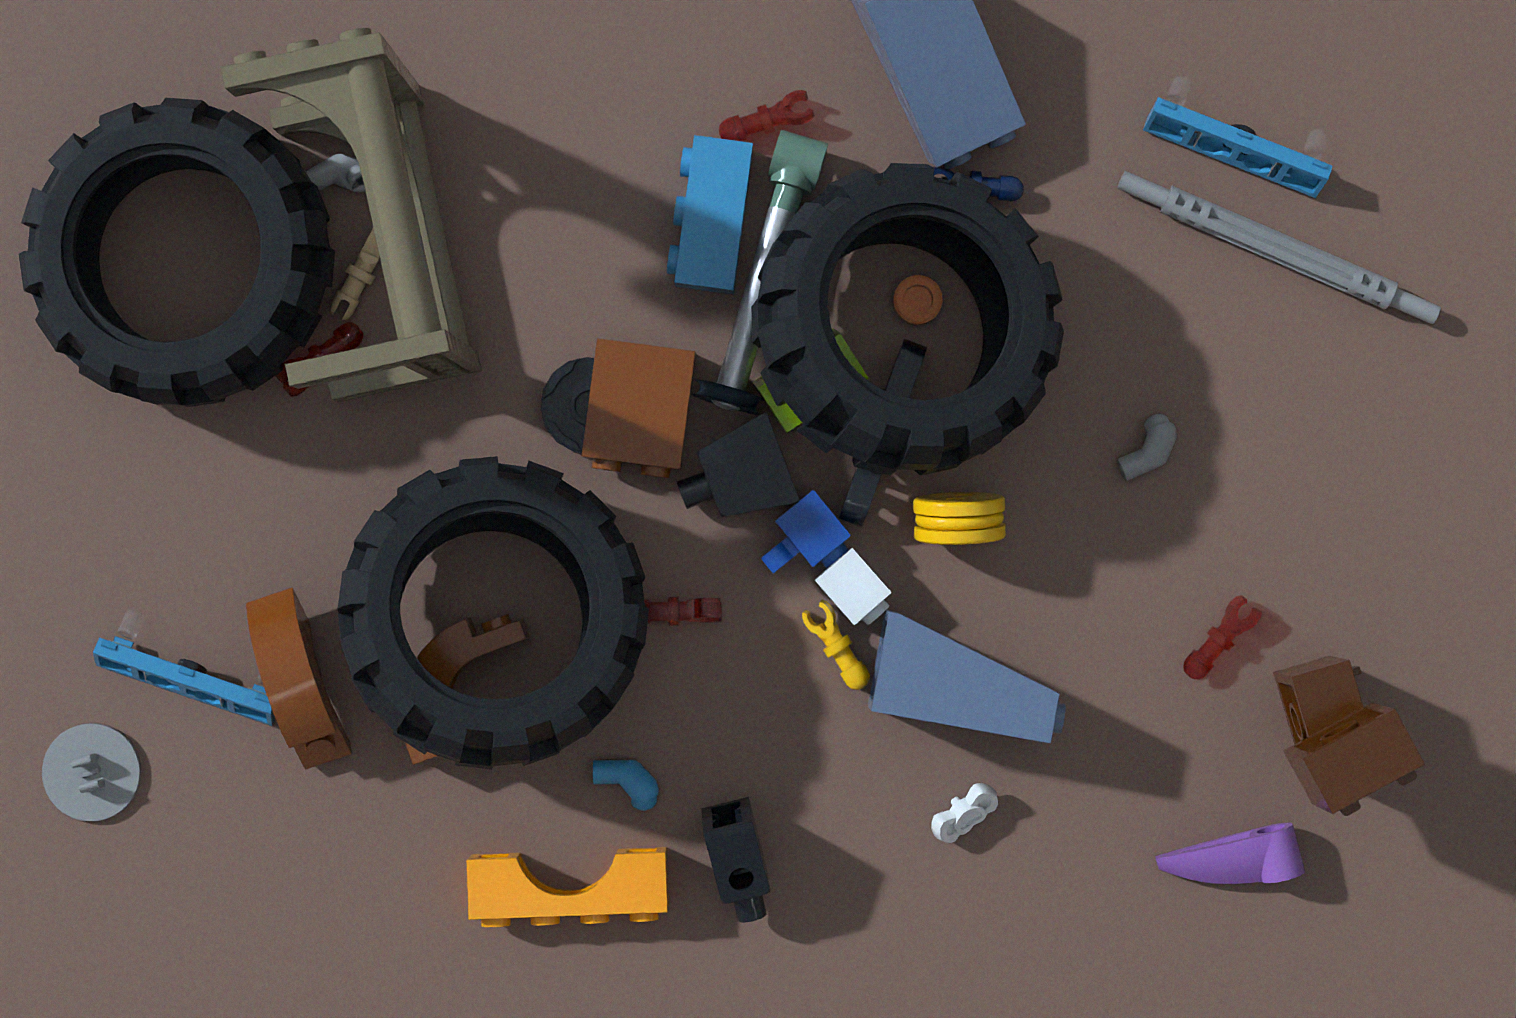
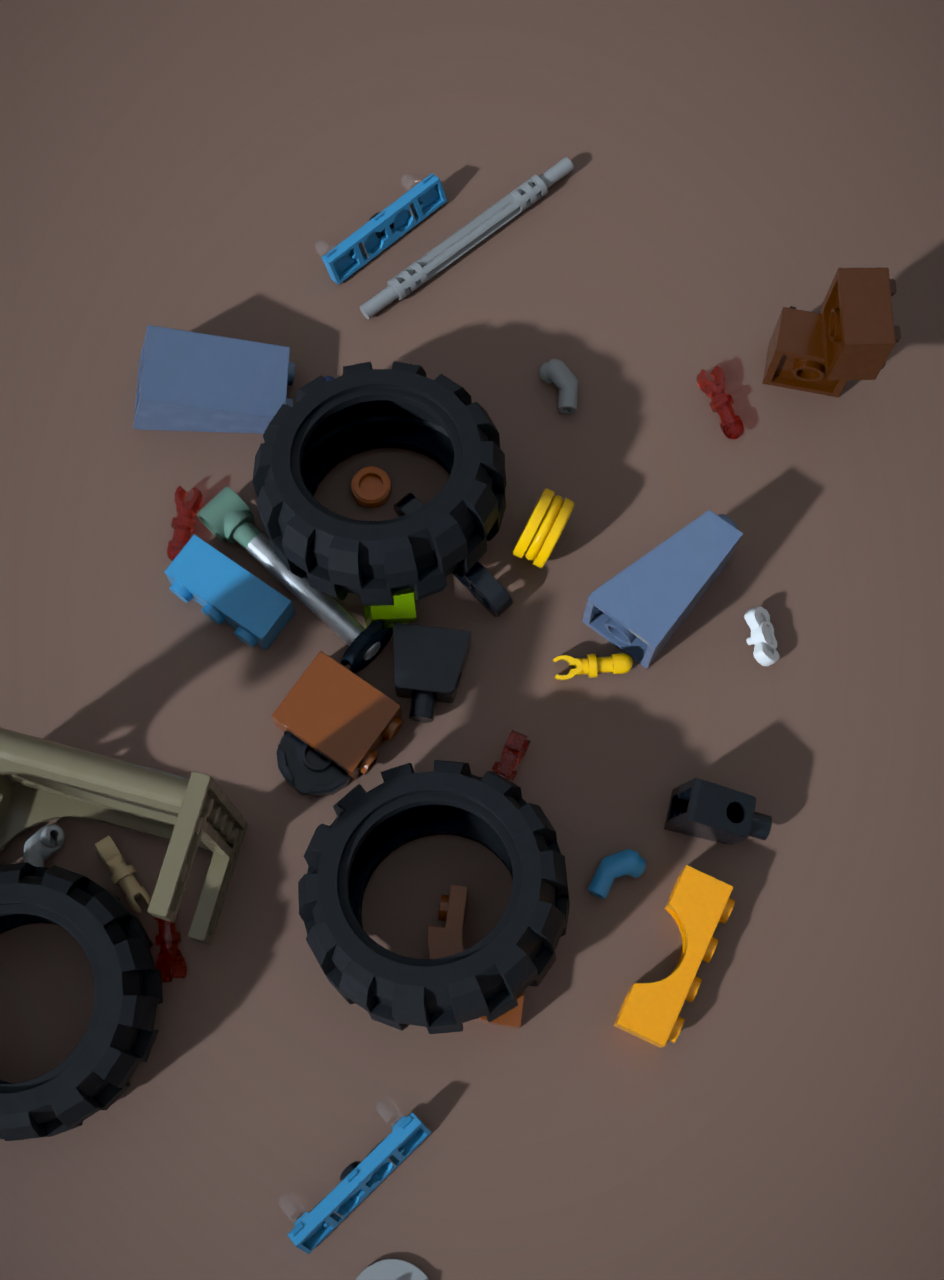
camera: 65 degrees left, 15 degrees down
(292, 679) = (405, 1087): dark orange arch -> none
(811, 531) = (497, 640): blue brick -> none
(854, 588) = (555, 630): white brick -> none
(1250, 856) = (887, 463): medium lavender piece -> none

